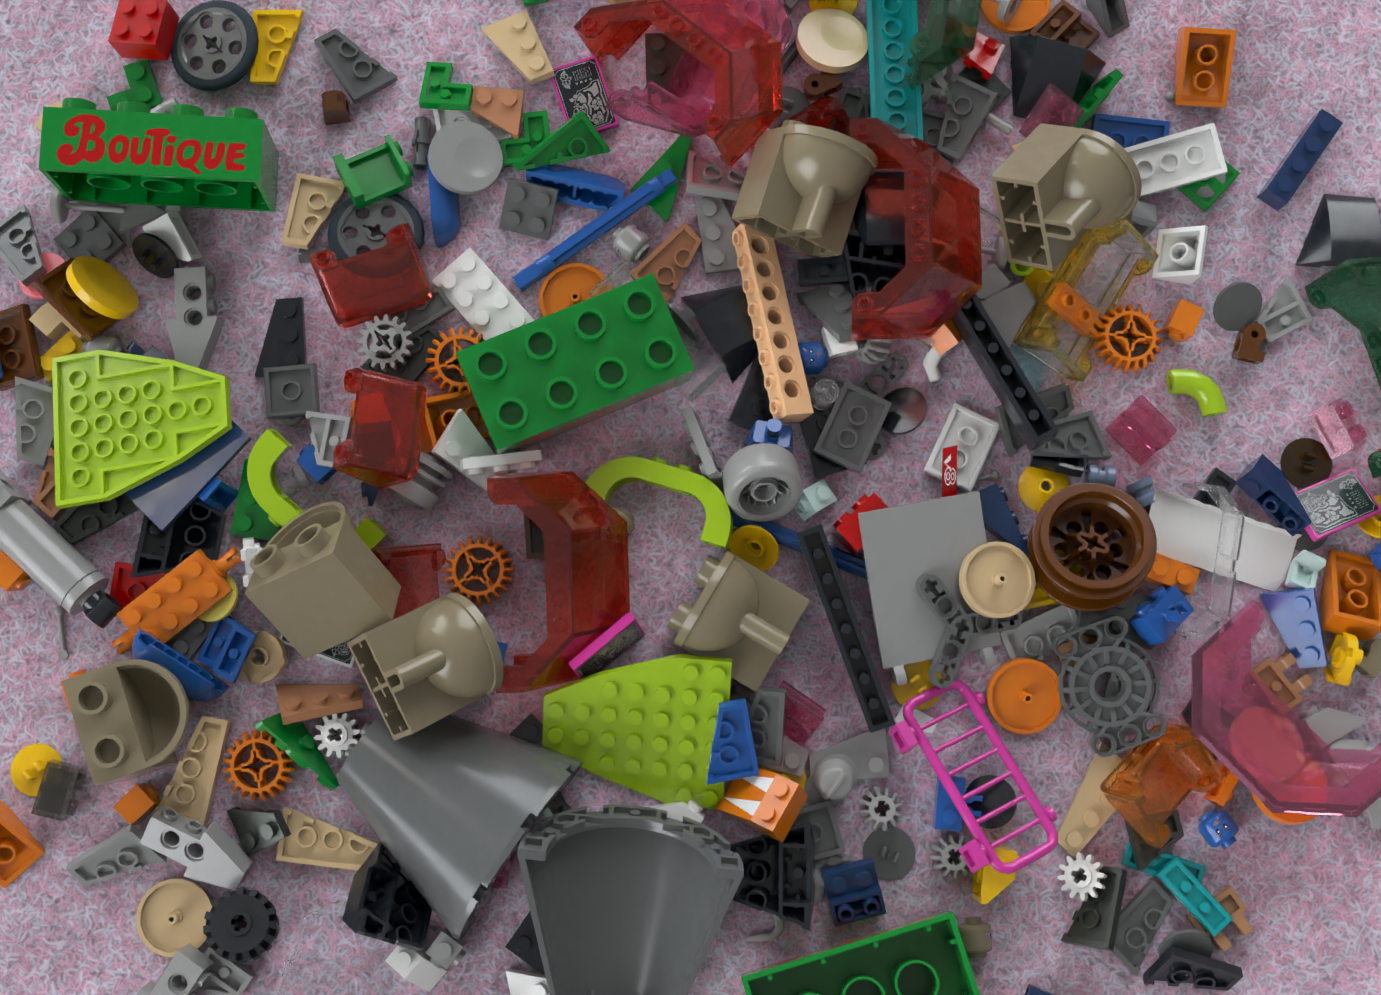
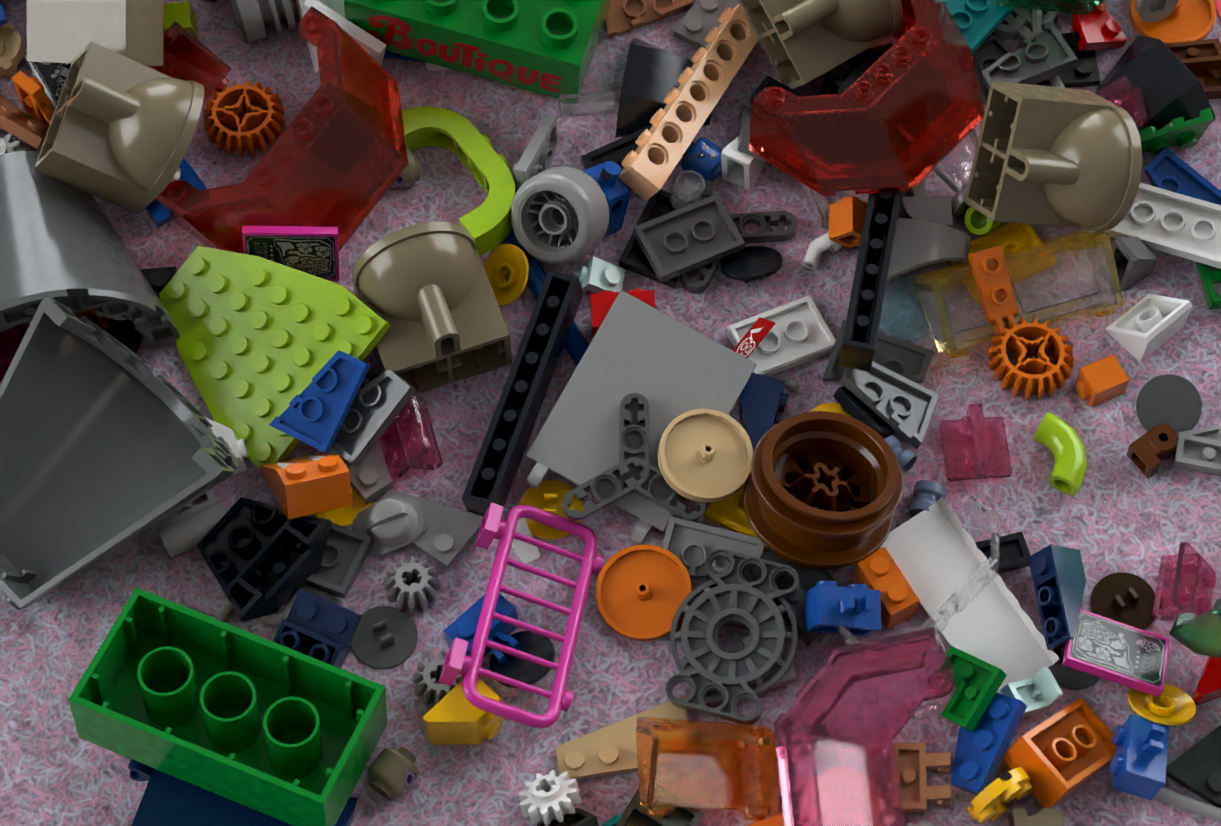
camera: 40 degrees right, 20 degrees down
(332, 674) = (33, 98): none -> orange wing
(682, 320) = (616, 44): dark grey piece -> none
(873, 350) = (772, 188): light grey gear -> none
(1274, 596) = (975, 686): none -> green plate

